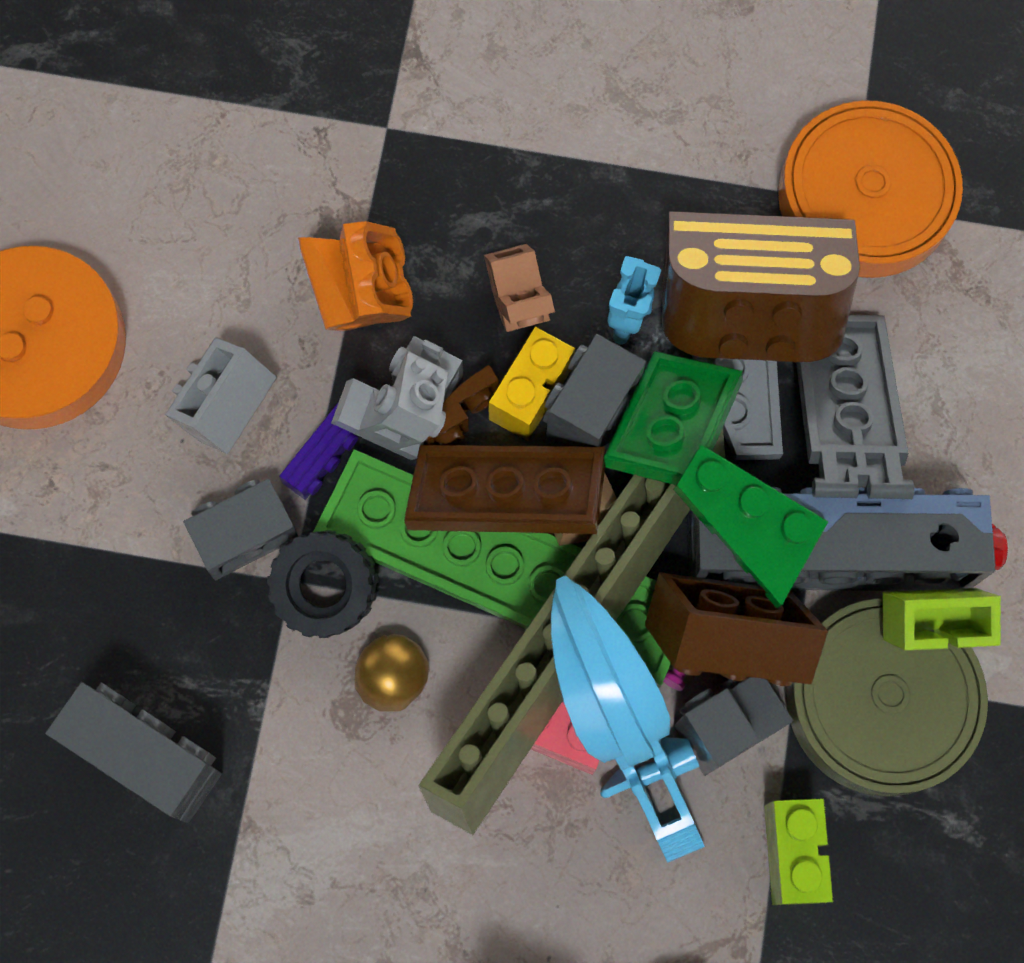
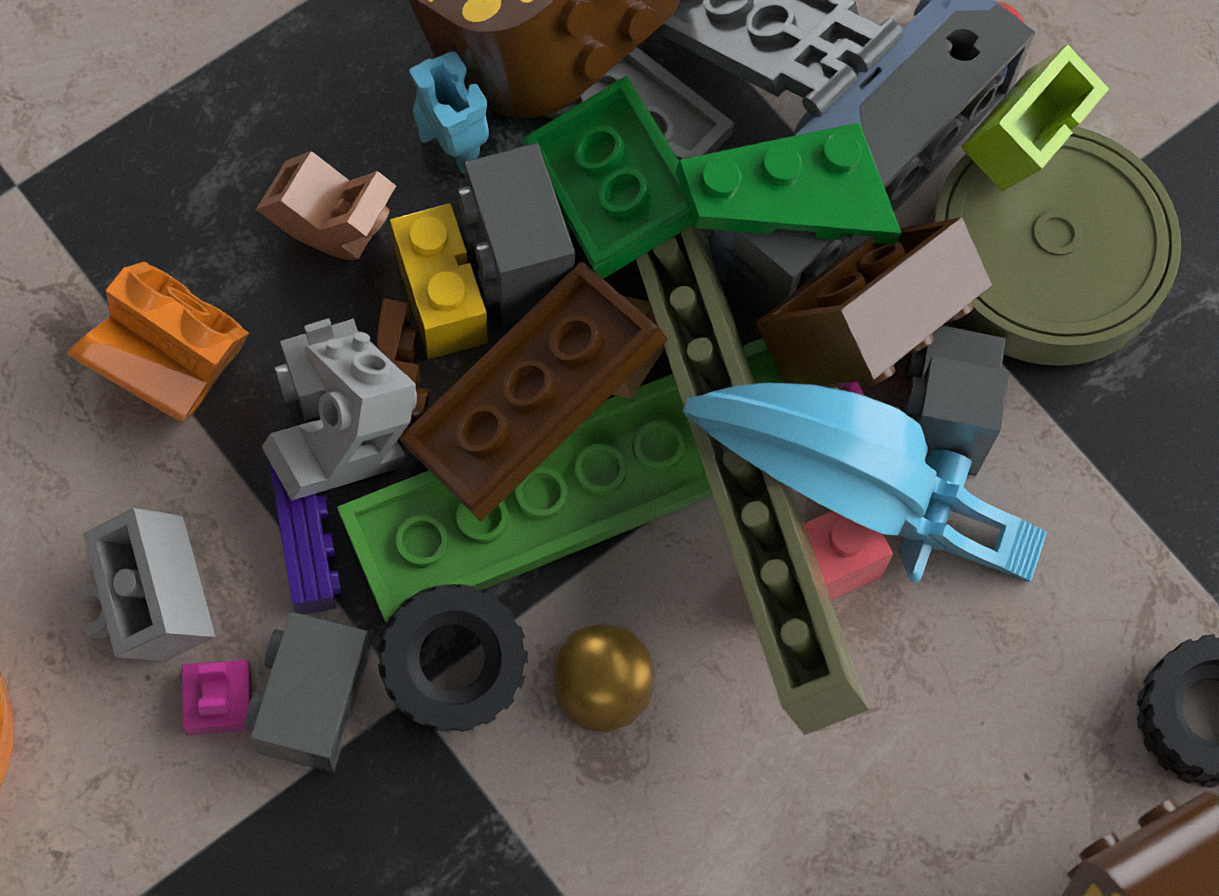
camera: 50 degrees left, 5 degrees down
(200, 482) = (215, 696): none -> dark pink tile
(793, 840) = (1128, 453): lime piece -> none

